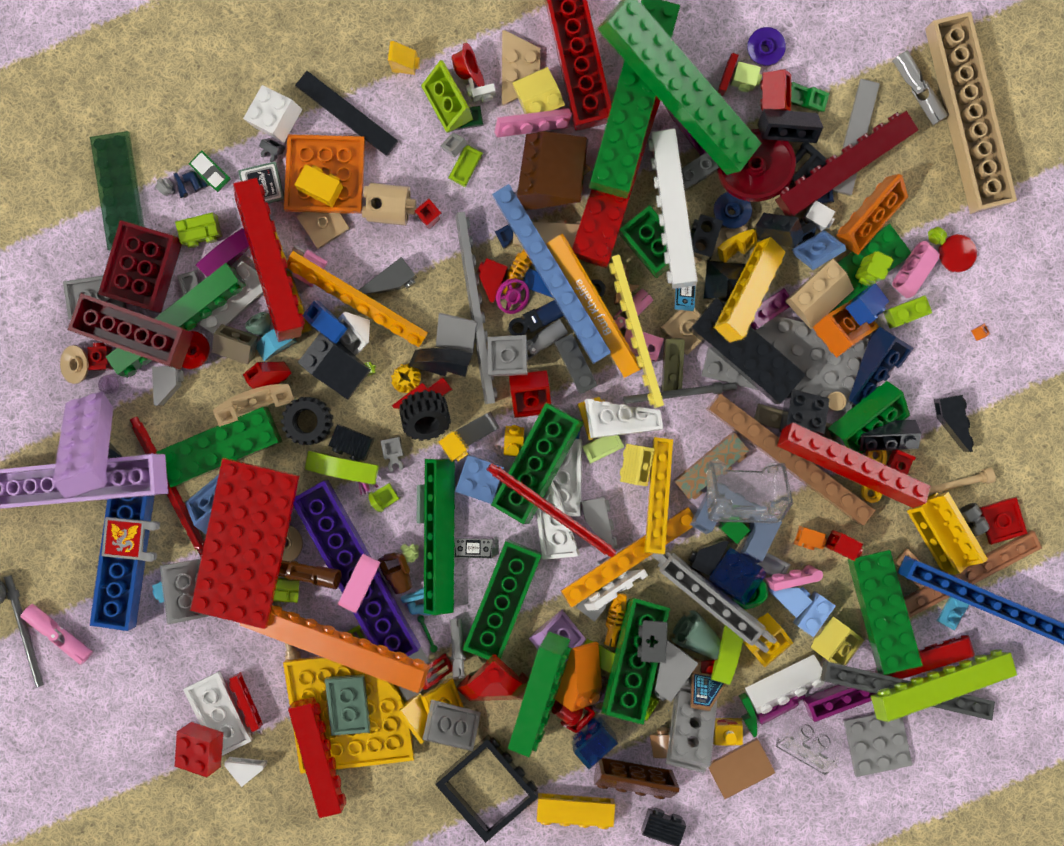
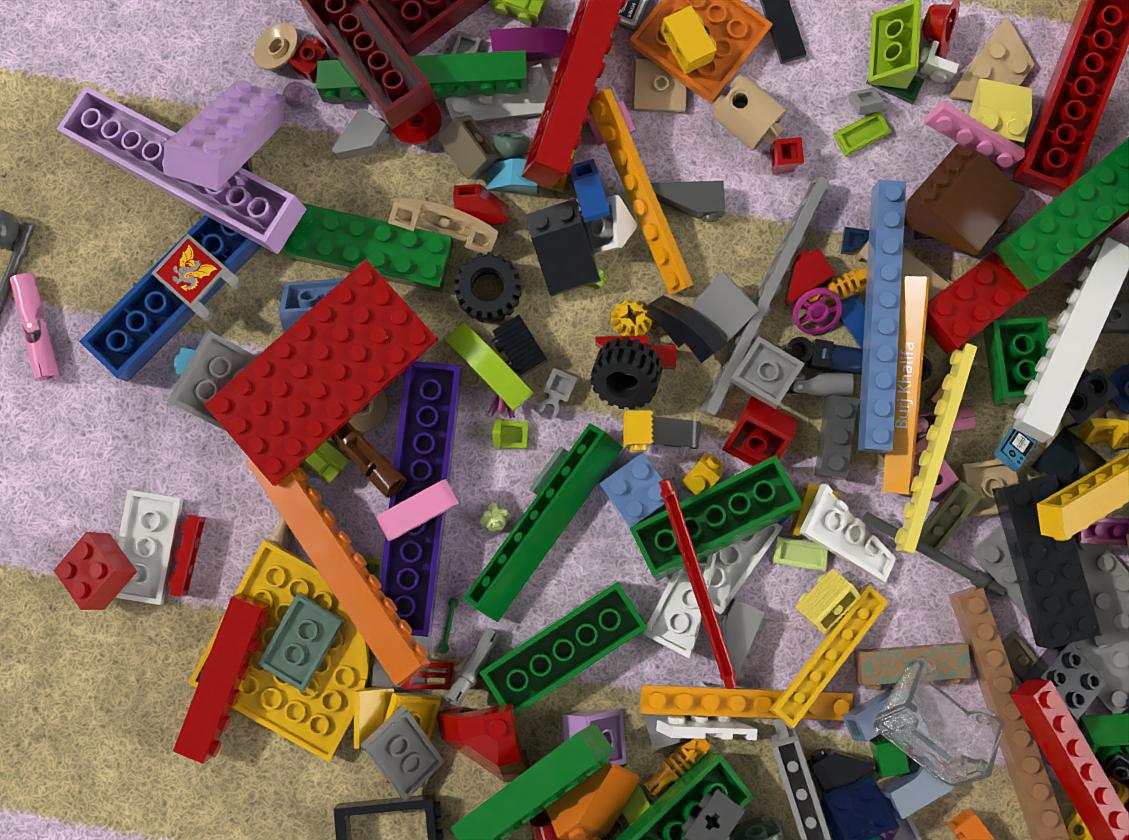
camera: 30 degrees right, 5 degrees down
(173, 494) = (278, 261): red piece -> none
(244, 769) = (129, 632): white slope -> none
(396, 576) = (465, 535): reddish brown piece -> none
(410, 600) = (453, 585): medium azure piece -> none
(473, 548) = (571, 565): tile -> none
(837, 401) = (1112, 693): tan piece -> none

